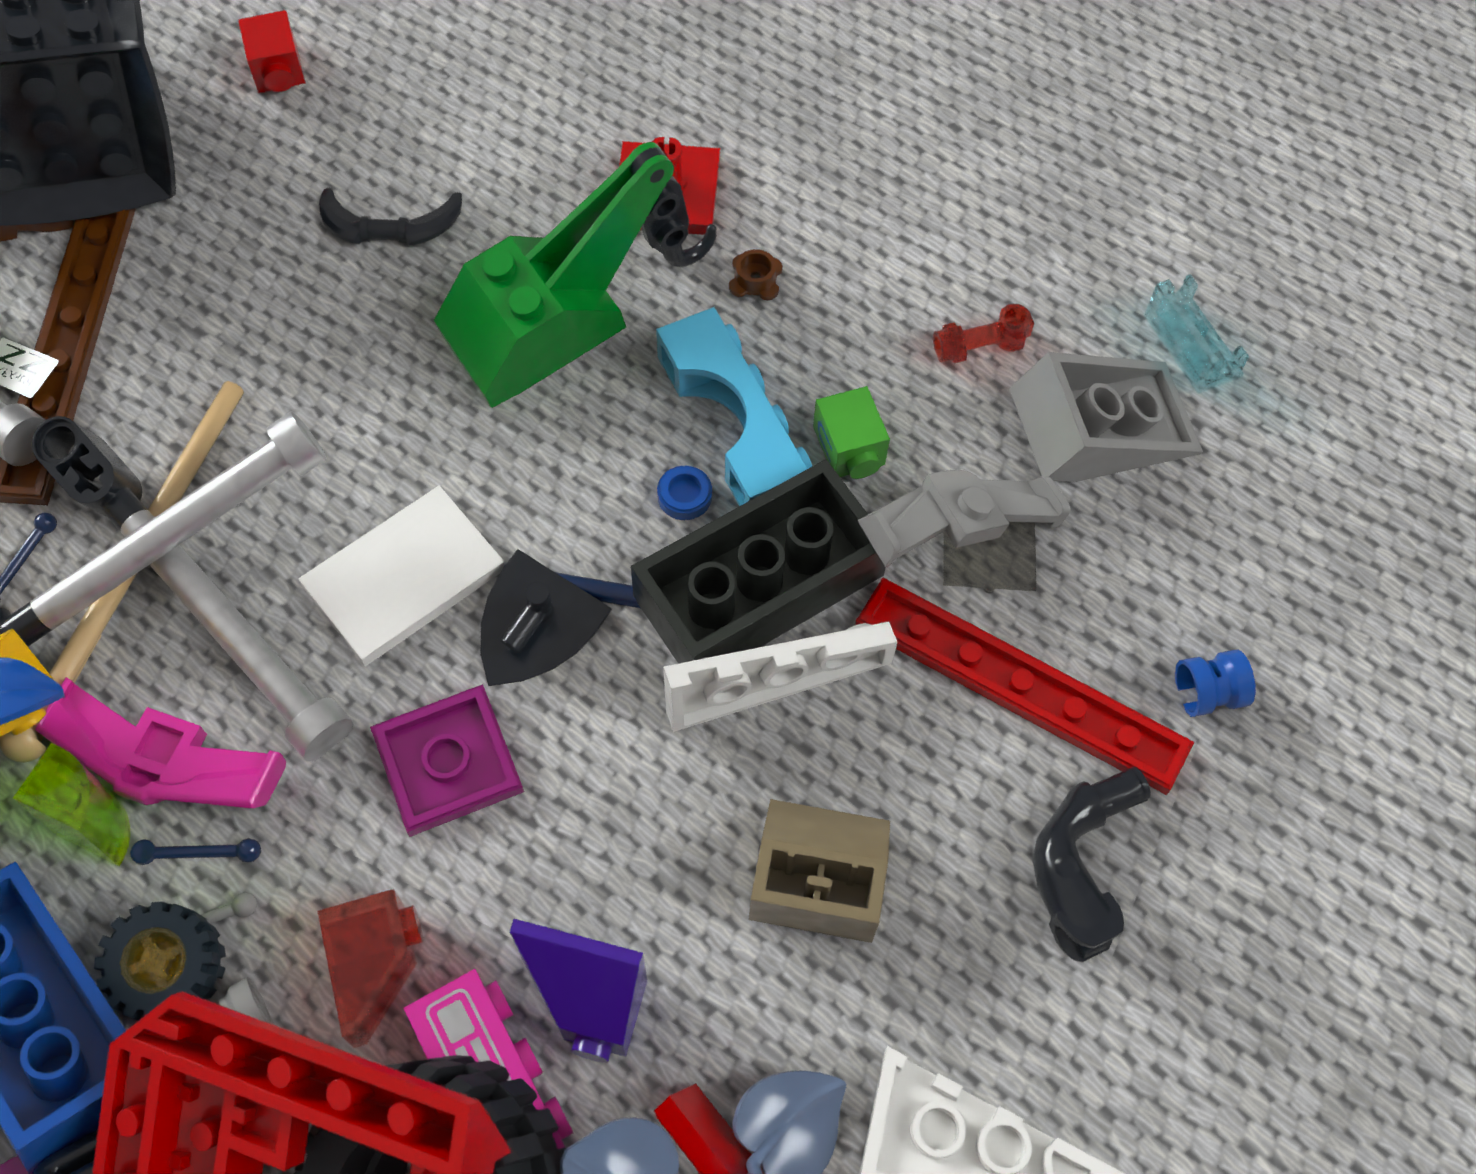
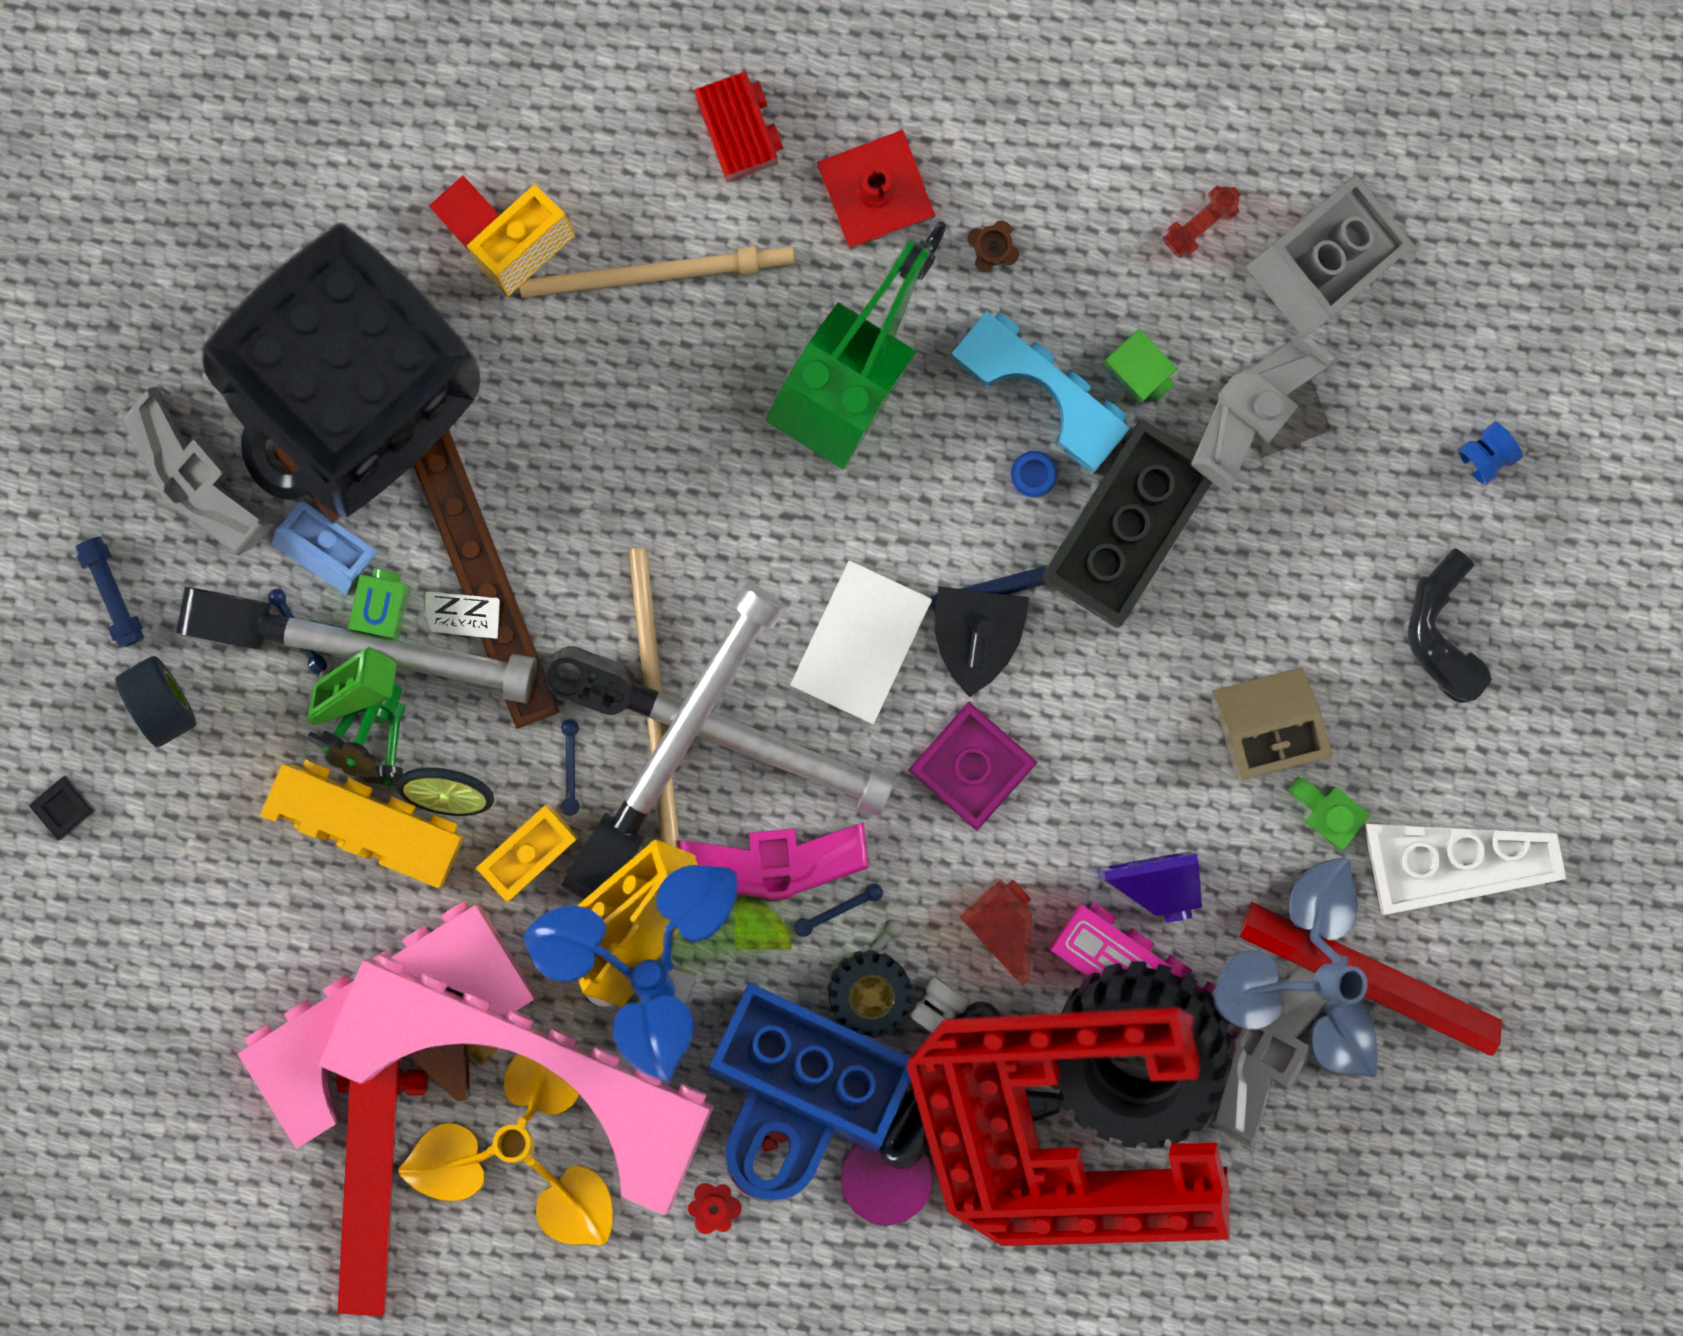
camera: 25 degrees left, 25 degrees up
(303, 82) = (521, 240): none -> yellow panel
(362, 229) = (642, 356): black piece -> none
(504, 192) = (747, 261): none -> tan bar
(564, 84) = (737, 125): none -> red brick
(751, 677) = (1191, 579): white wing -> none
(850, 1019) = (1332, 814): none -> bright green plate
(1028, 686) = (1352, 515): red tile -> none
(1191, 337) = (1371, 141): clear light blue hinge -> none

